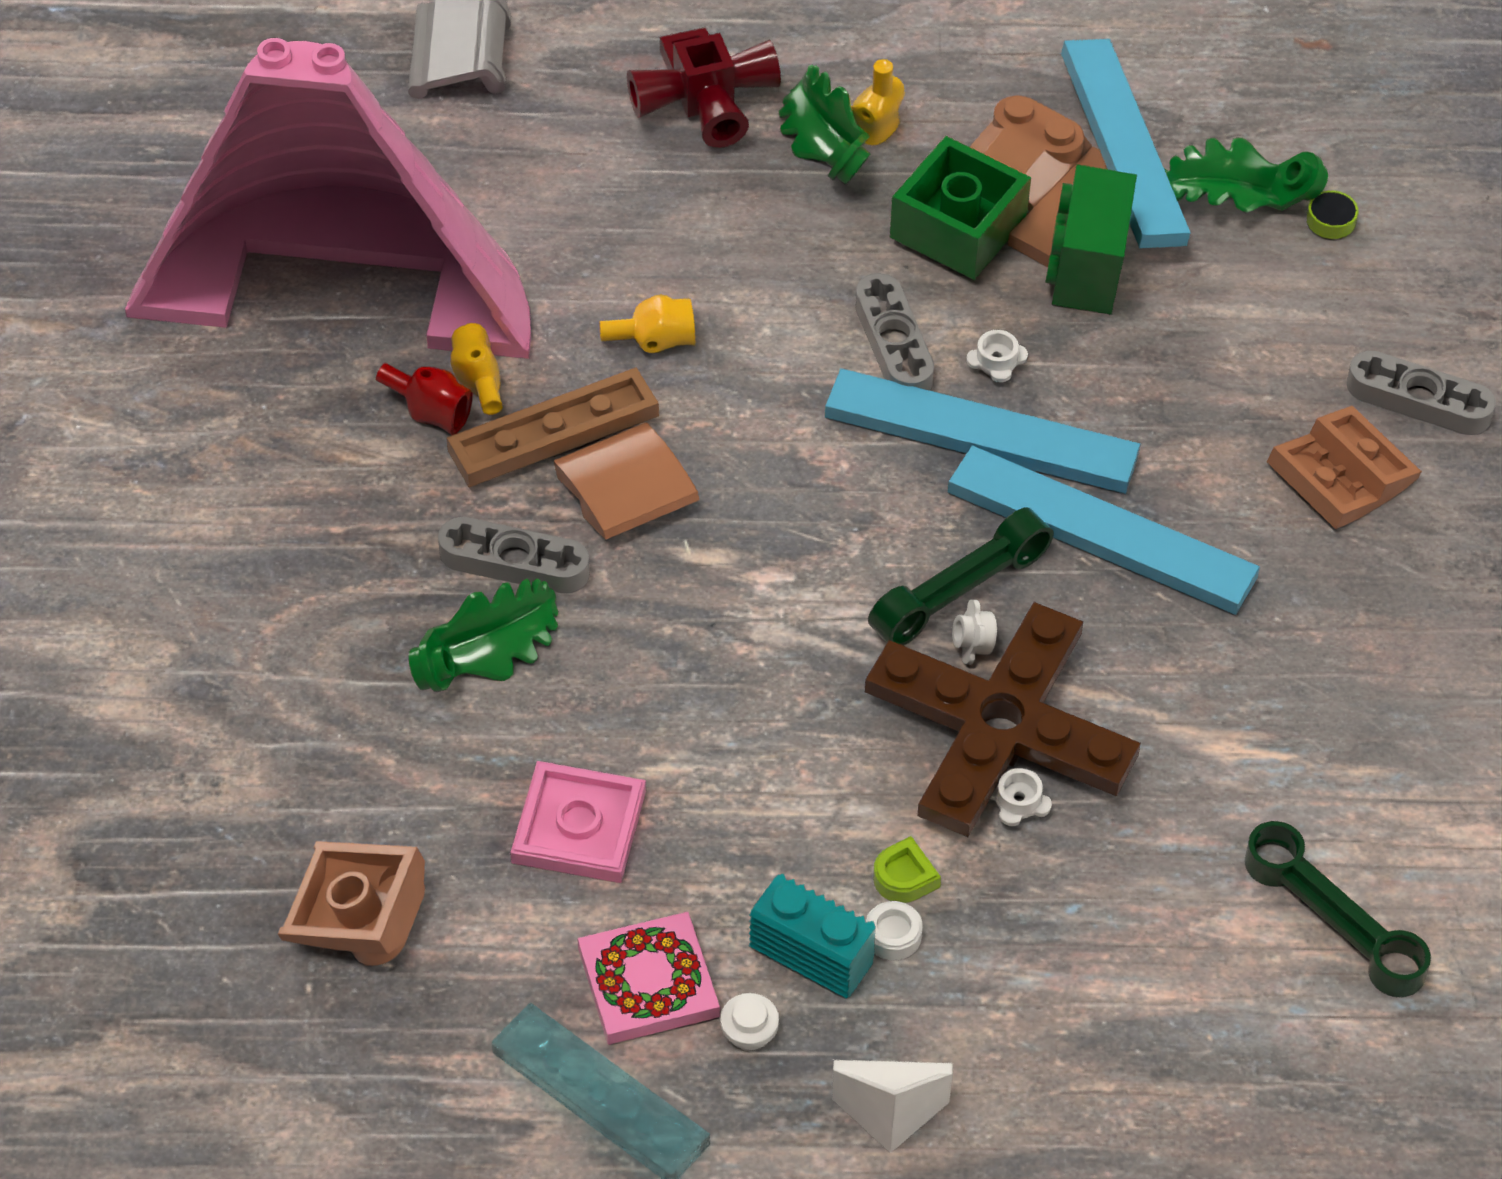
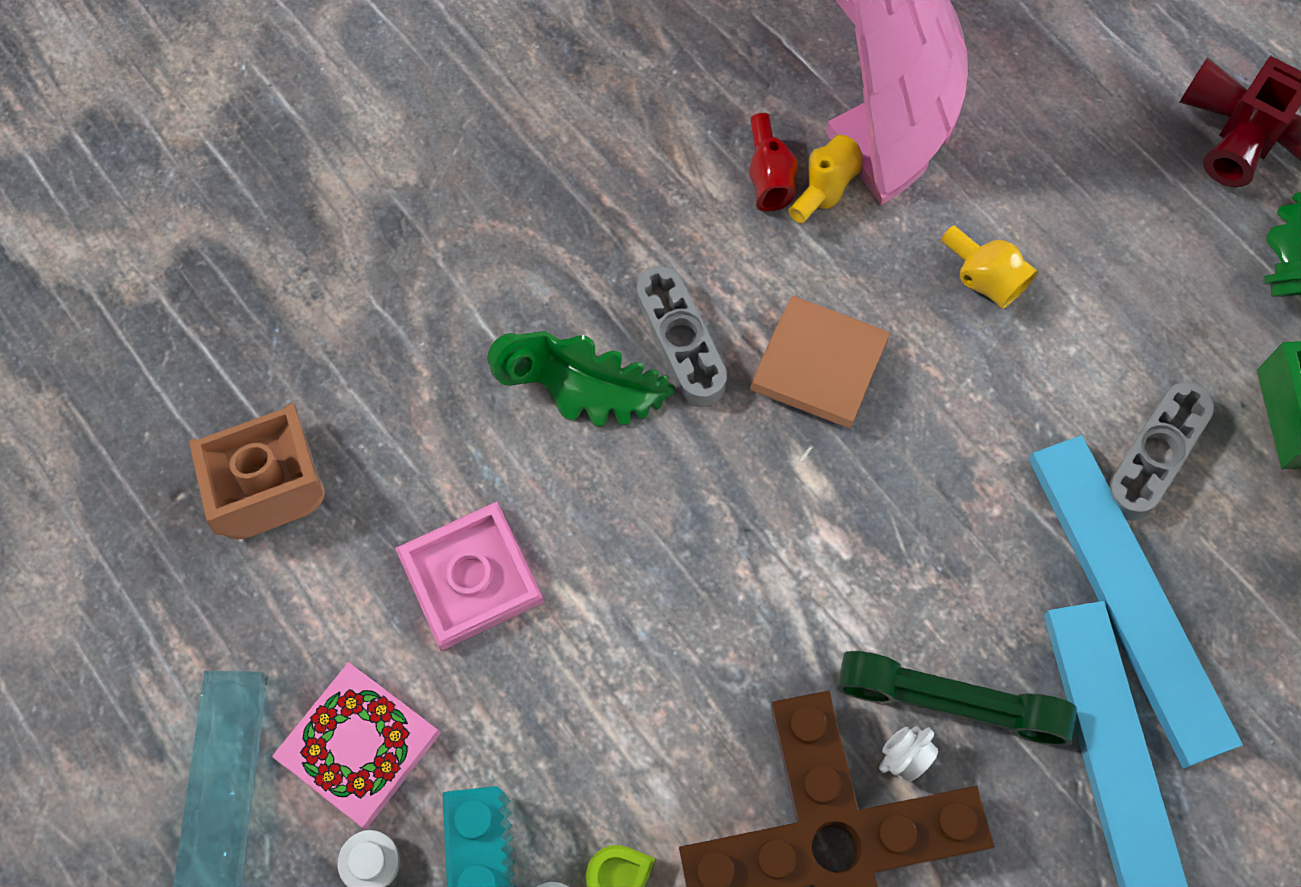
camera: 55 degrees right, 15 degrees up
(552, 427) = (824, 271): medium nougat plate -> none
(997, 355) = (1230, 538): white plate -> none

